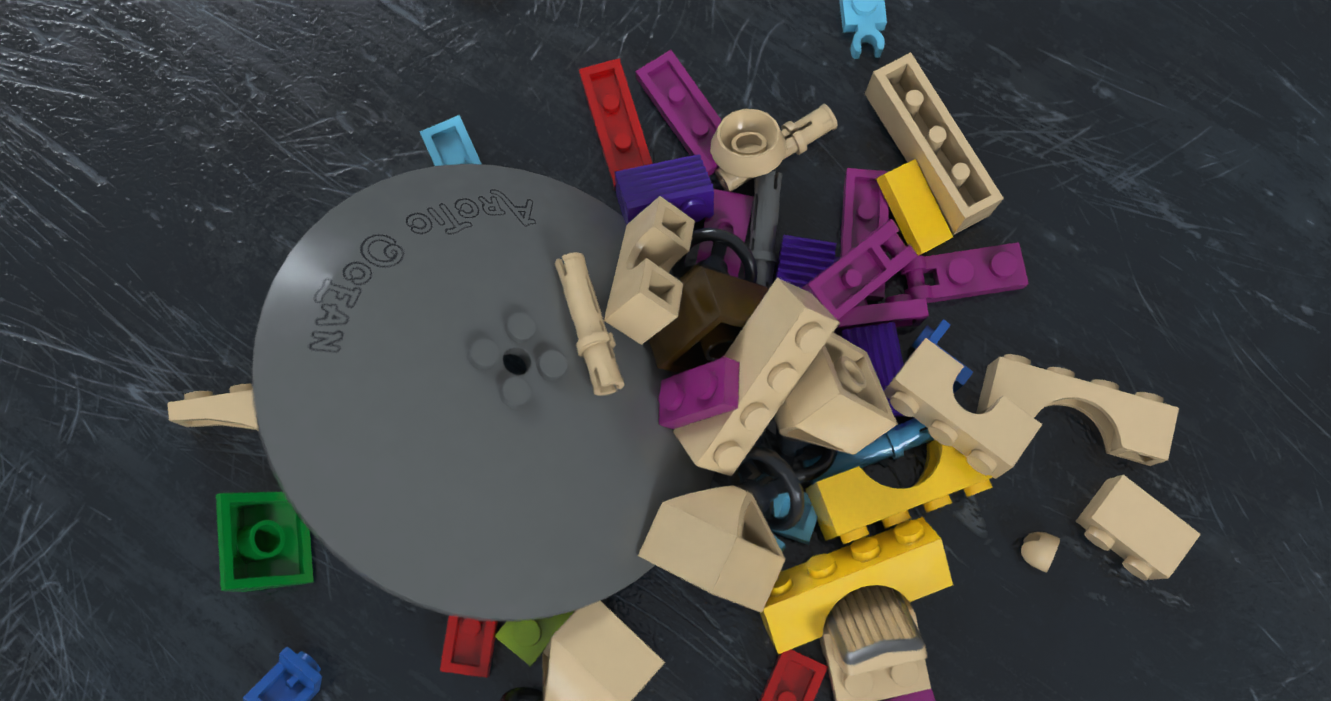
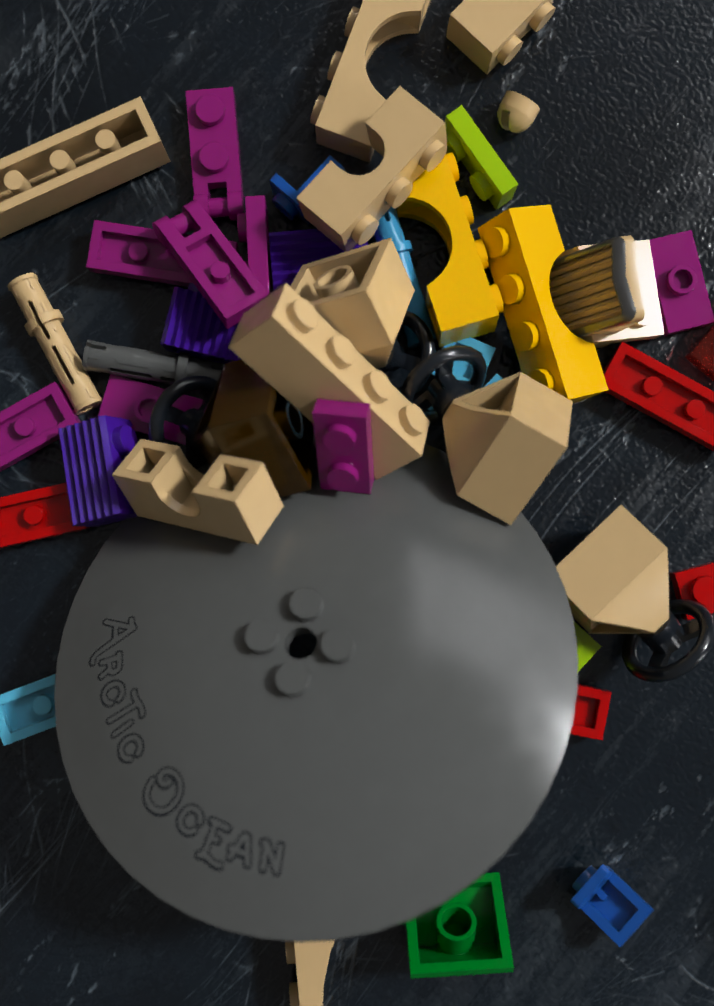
camera: 90 degrees left, 10 degrees up
(593, 338) = (269, 559): tan pin -> none
(748, 143) = (48, 361): tan hat -> none
(914, 207) = (137, 198): yellow tile -> none
(1003, 501) = (488, 173): none -> lime plate

